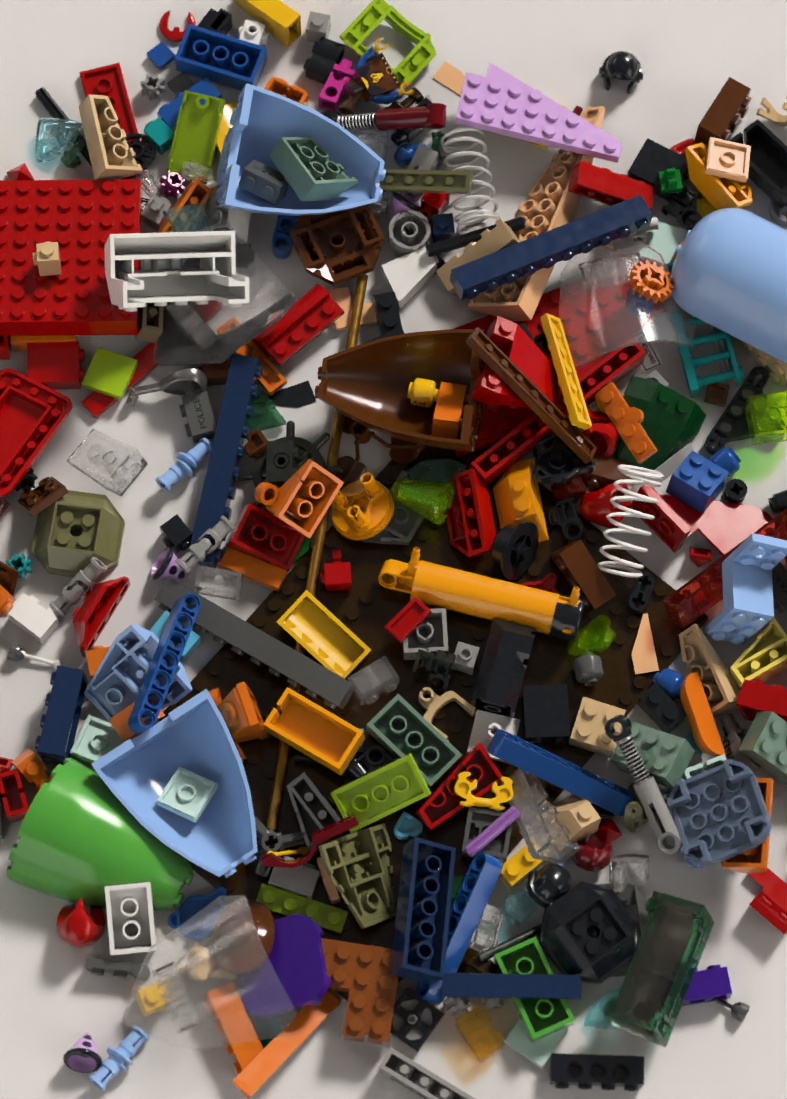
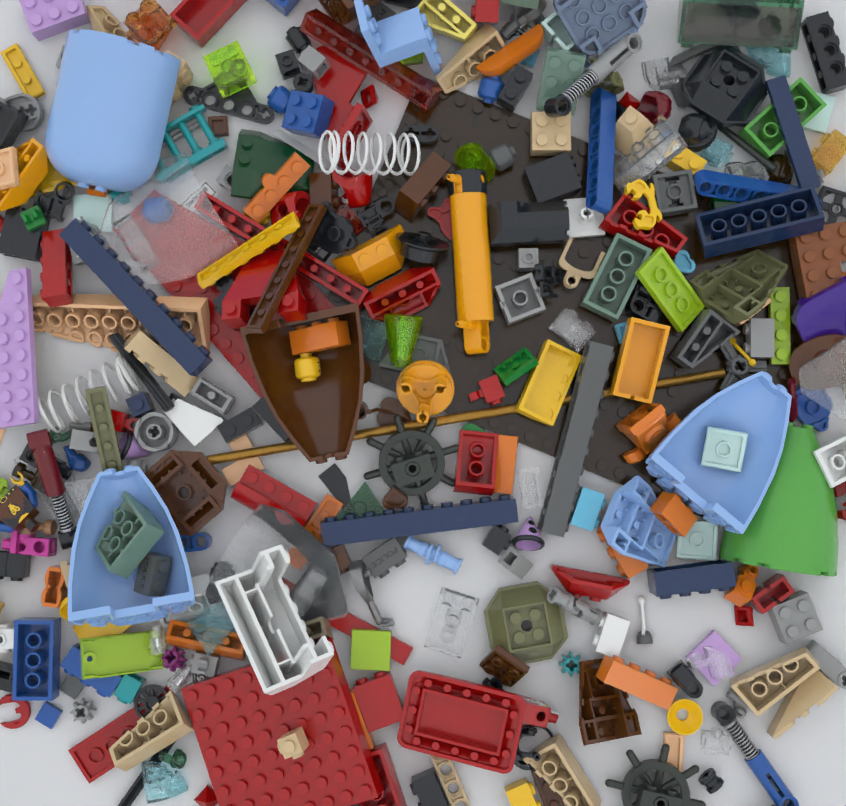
camera: 105 degrees left, 15 degrees up
(145, 543) = (515, 562): none -> light grey brick
(158, 670) = (637, 500): blue beam -> none
(198, 551) = (506, 510): light grey piece -> none
(210, 890) = (794, 405): none -> dark red piece
(302, 498) = (444, 438): orange piece -> none
(317, 837) = (730, 323): dark red piece -> none
(353, 606) = (515, 366): none -> green bracket
(408, 619) = (517, 313): red tile -> none
(427, 299) = (213, 396): none -> light grey brick
(492, 831) = (675, 186): medium lavender axle -> none
(644, 652) = (468, 118): light nougat sticker -> none
(651, 281) = (141, 200): orange gear -> none
(754, 506) = (313, 62): none -> light grey brick
(761, 481) = (288, 64): none -> black brick

